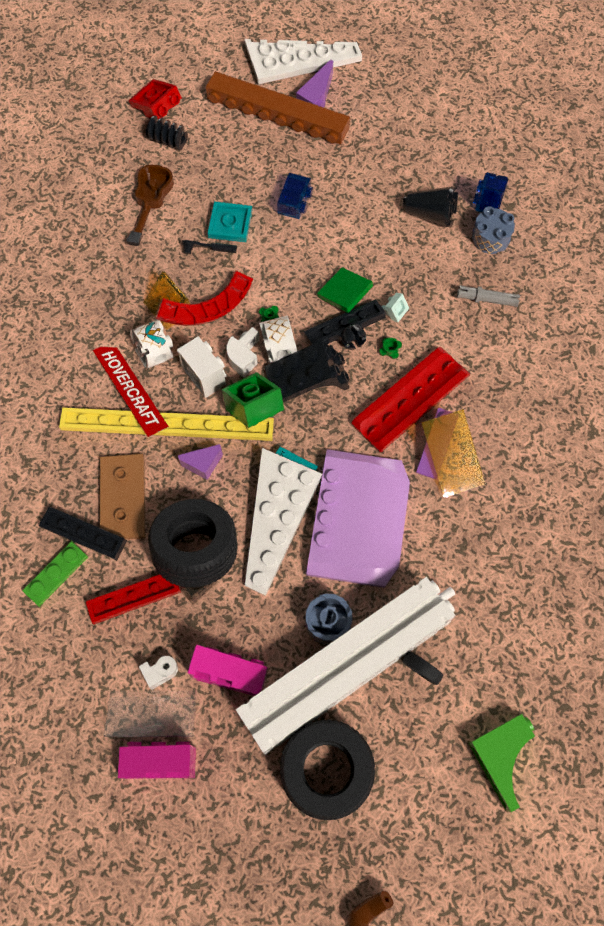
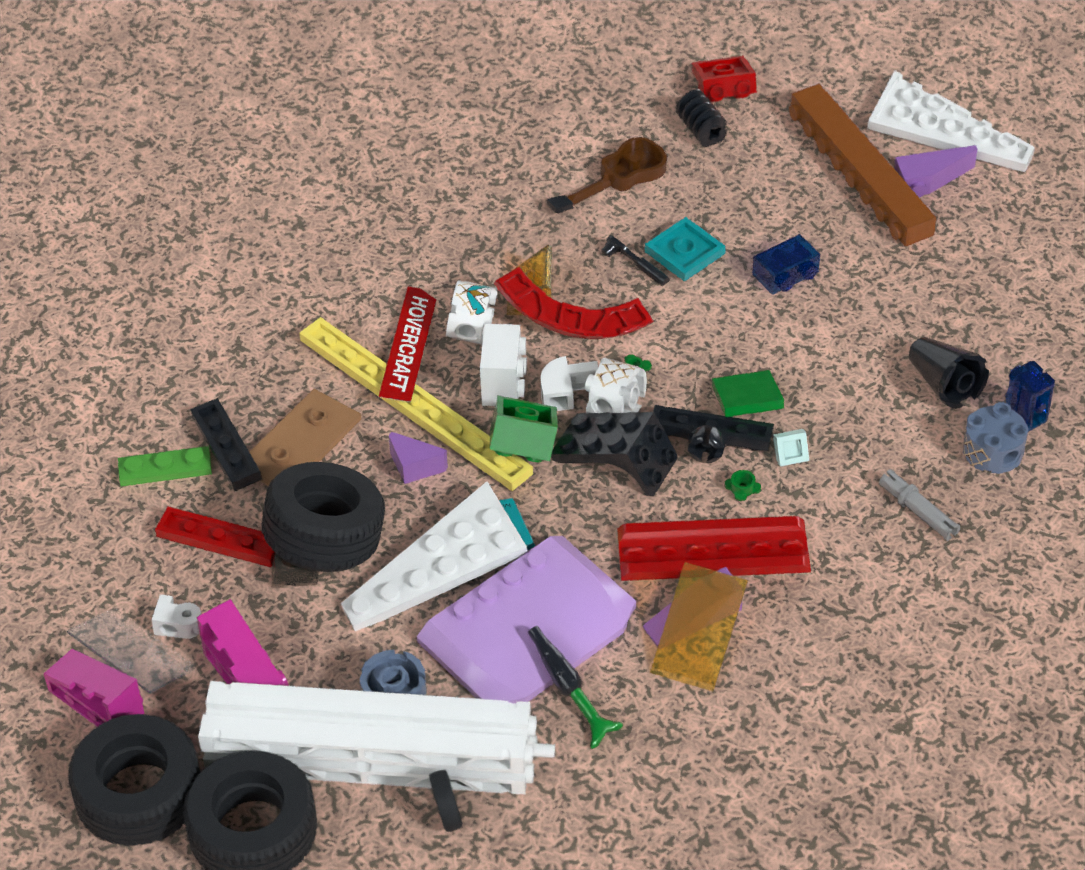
camera: 40 degrees right, 20 degrees down
(203, 809) = (123, 743): none -> black tyre
(417, 540) = (570, 684): none -> piece

